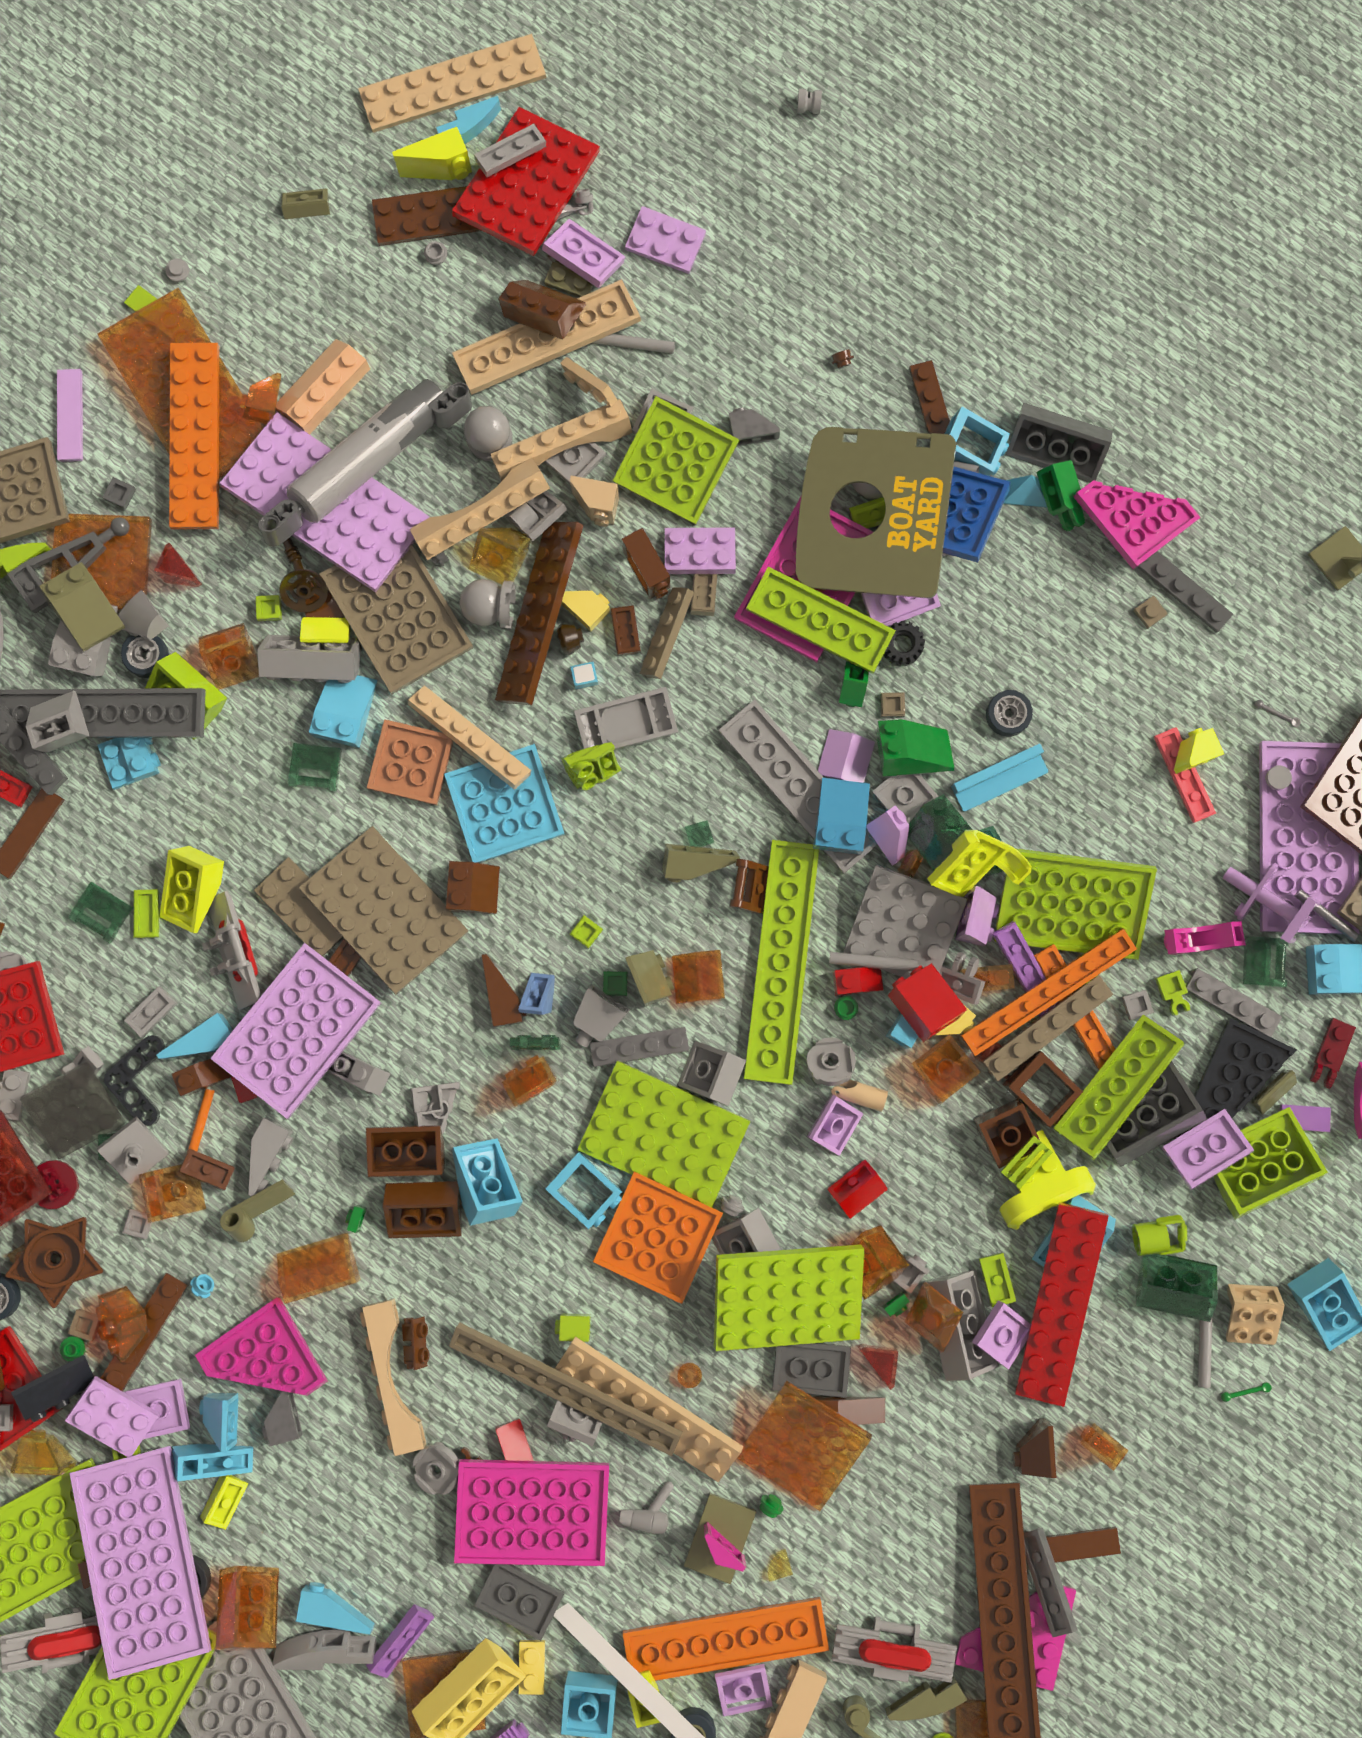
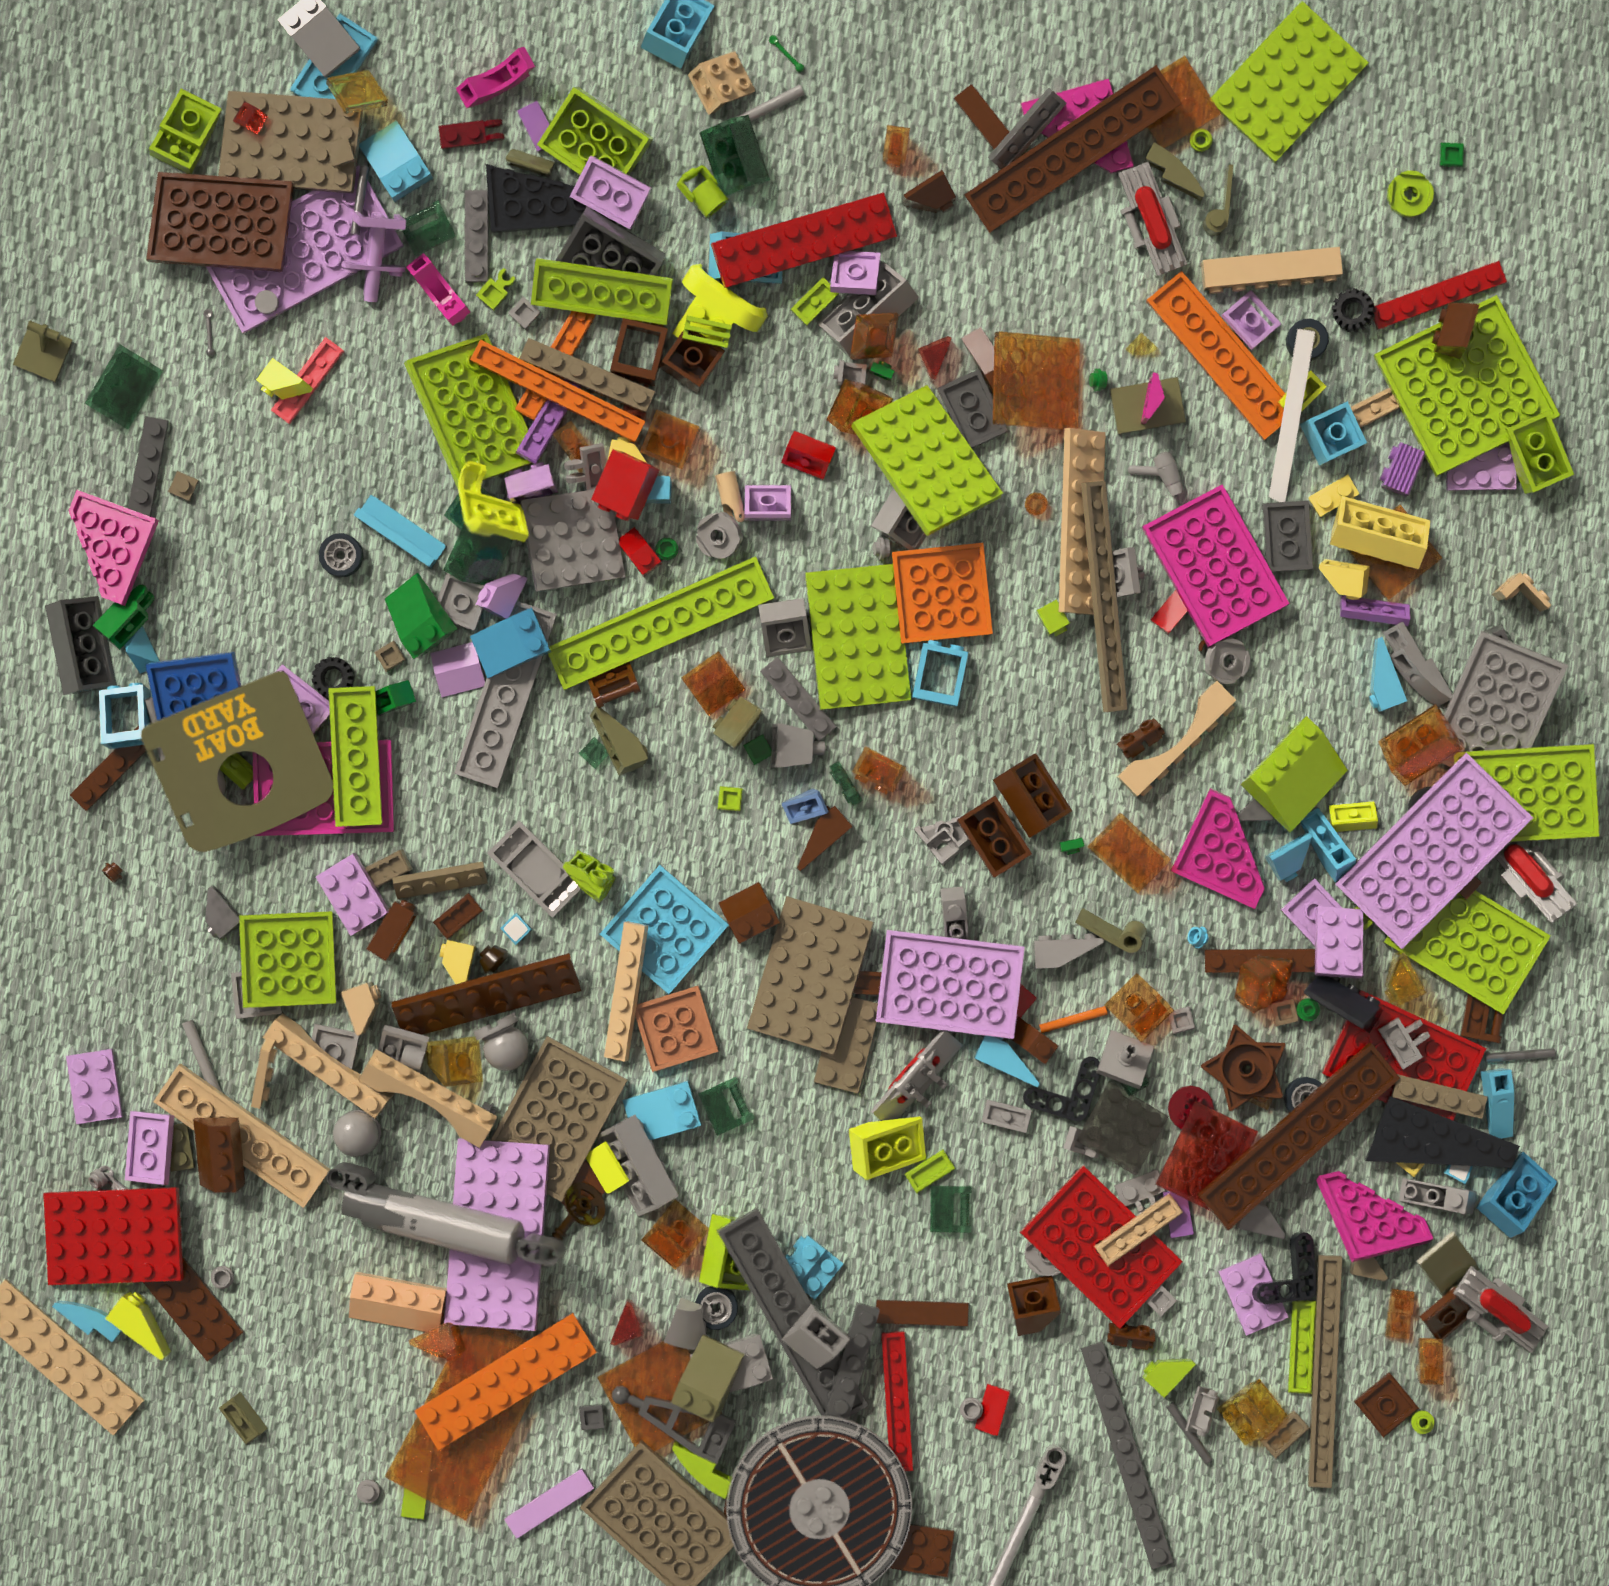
camera: 125 degrees left, 5 degrees up
(206, 1169) = (1104, 990): reddish brown plate -> none
(268, 608) = (615, 1228): lime plate -> none
(293, 1470) = (1296, 774): none -> lime slope
(446, 1633) = (1346, 577): none -> light yellow slope
(485, 1182) = (980, 757): medium azure slope -> none
(510, 150) = (97, 1262): light grey plate -> none
(872, 961) = (616, 548): light grey piece -> none
(910, 863) = (516, 564): clear orange slope -> none
(1271, 609) = (123, 387): none -> clear green slope

